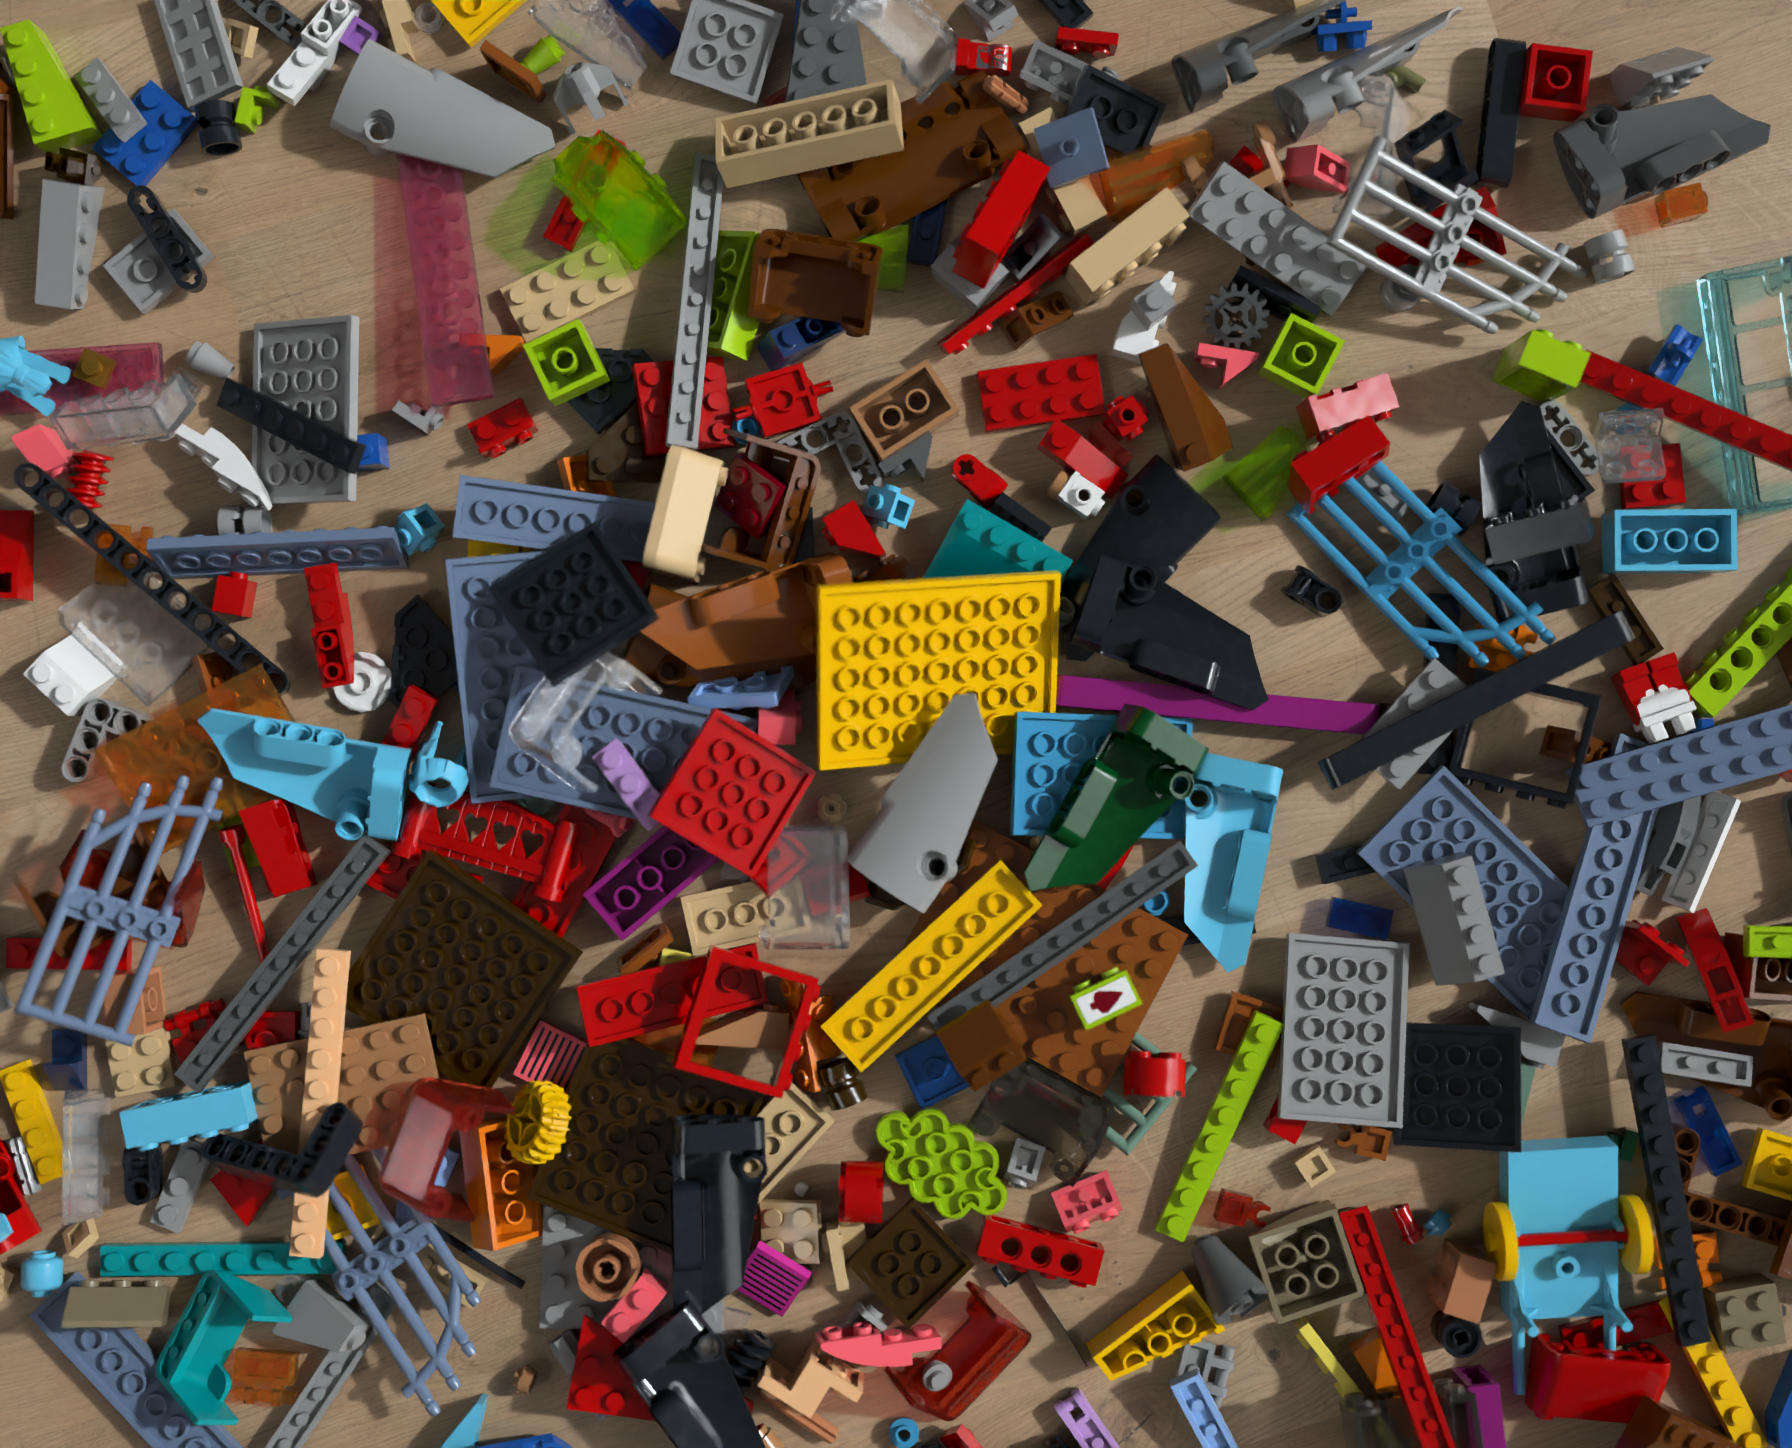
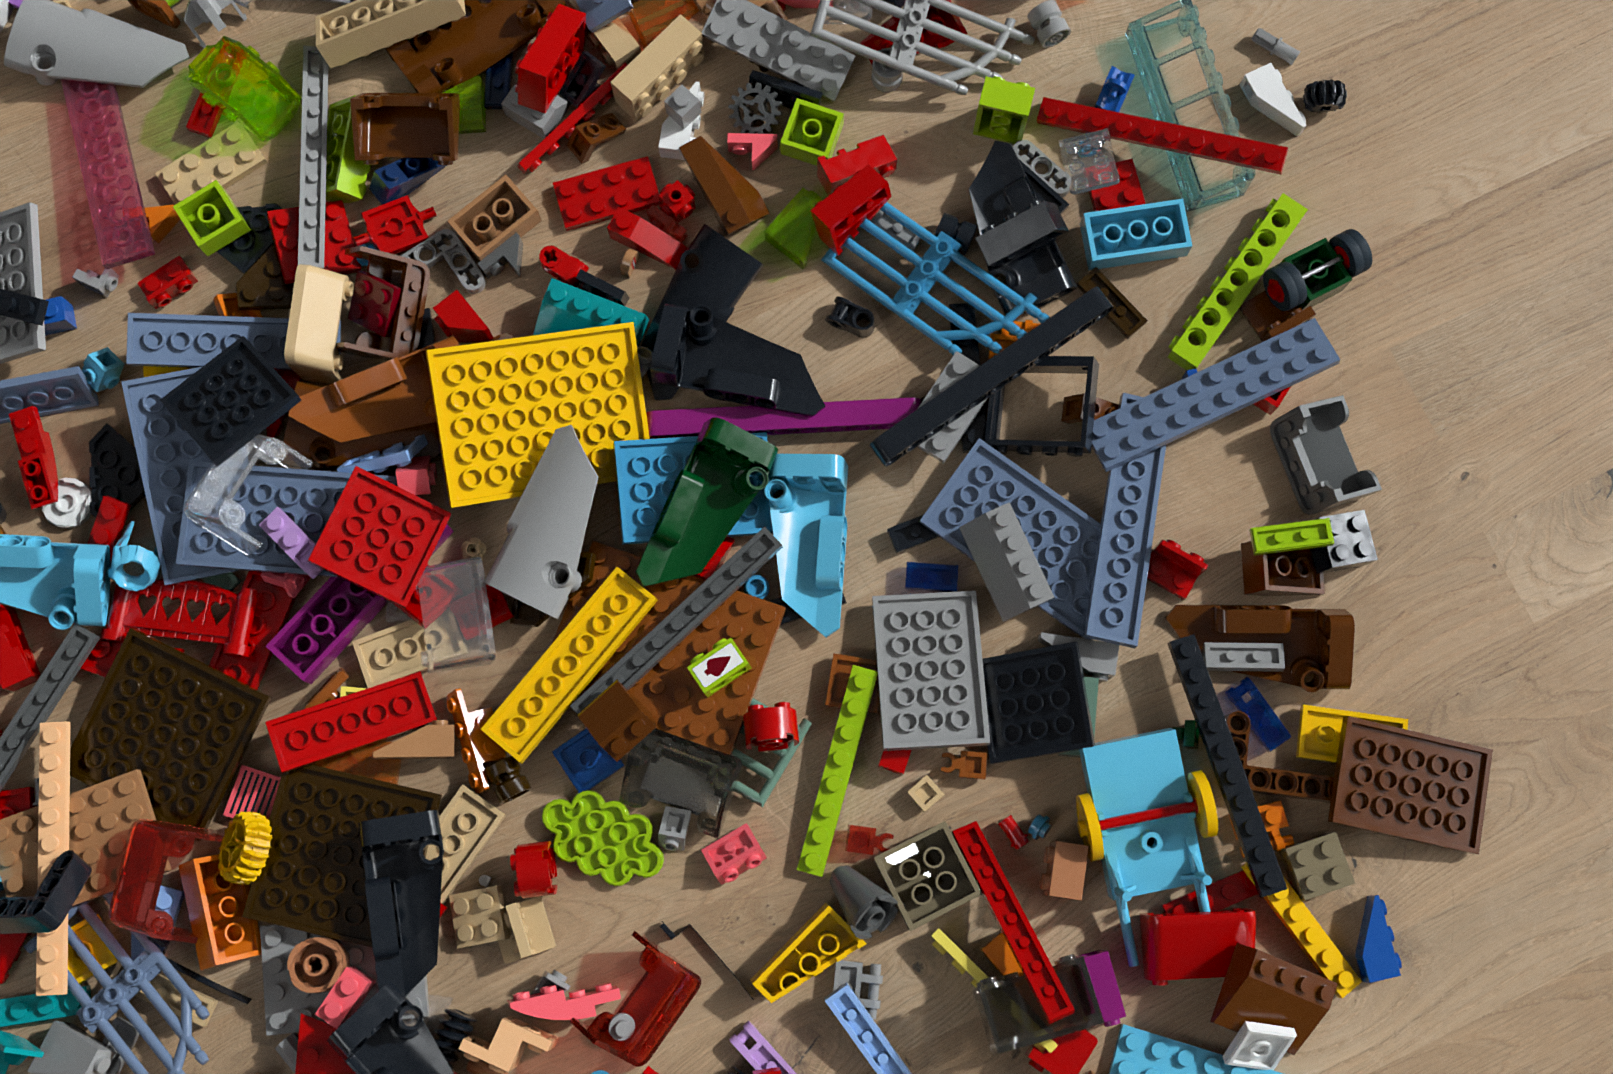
camera: 10 degrees left, 10 degrees down
(281, 1288) = (36, 1030): clear plate -> none
(699, 1005) = (457, 752): red window -> none
(773, 1278) = (465, 960): dark pink tile -> none
(881, 506) = (490, 297): medium azure brick -> none
(910, 1263) = (585, 928): dark brown plate -> none
(1070, 497) = (653, 276): white brick -> none
(1080, 1273) = (657, 889): red brick -> none
(1456, 1335) = (1069, 919): black wheel -> none
(1656, 695) = (1146, 358): hips -> none
(1670, 844) = (1180, 476): dark grey slope -> none
(1712, 828) = (1208, 480): white plate -> none
(1715, 970) = (1236, 574): red slope -> none

